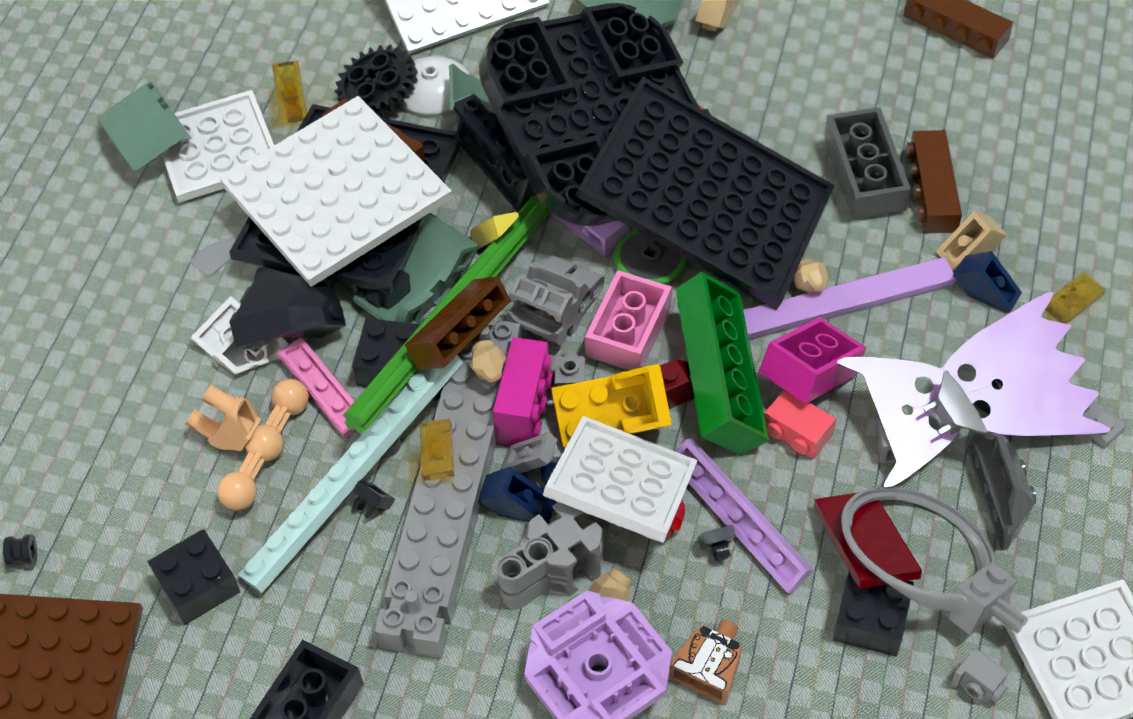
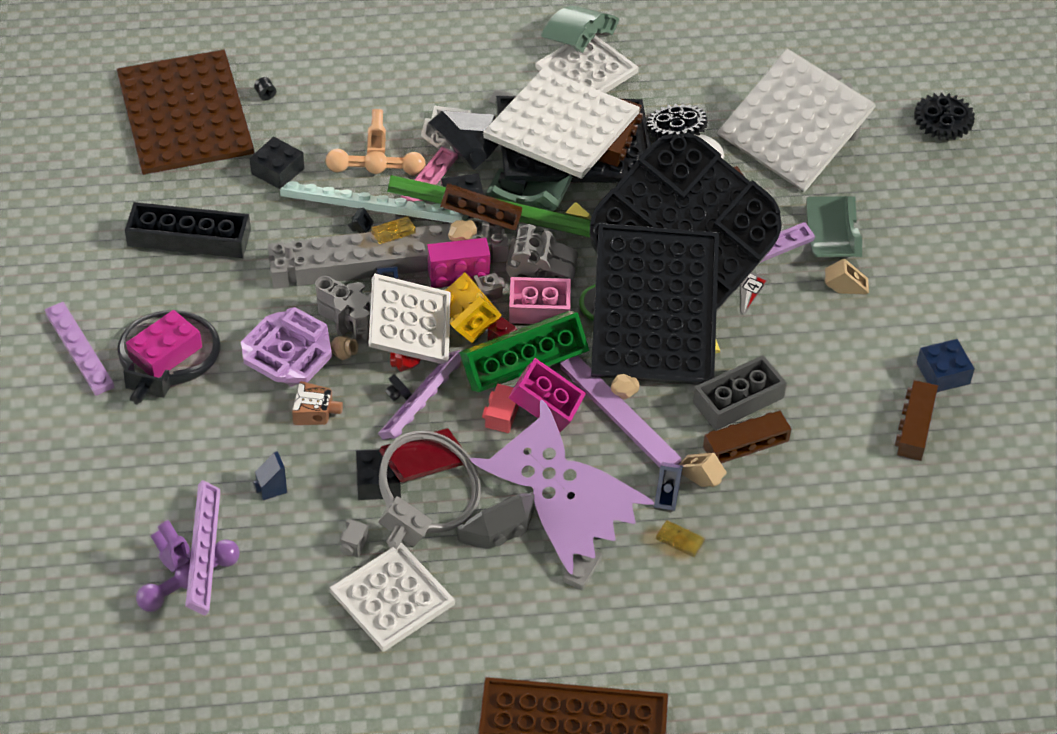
camera: 65 degrees right, 5 degrees down
(290, 91) = (644, 83): clear yellow brick -> none
(531, 453) = (418, 279): light grey plate -> none
(955, 408) = (536, 471): light grey piece -> none

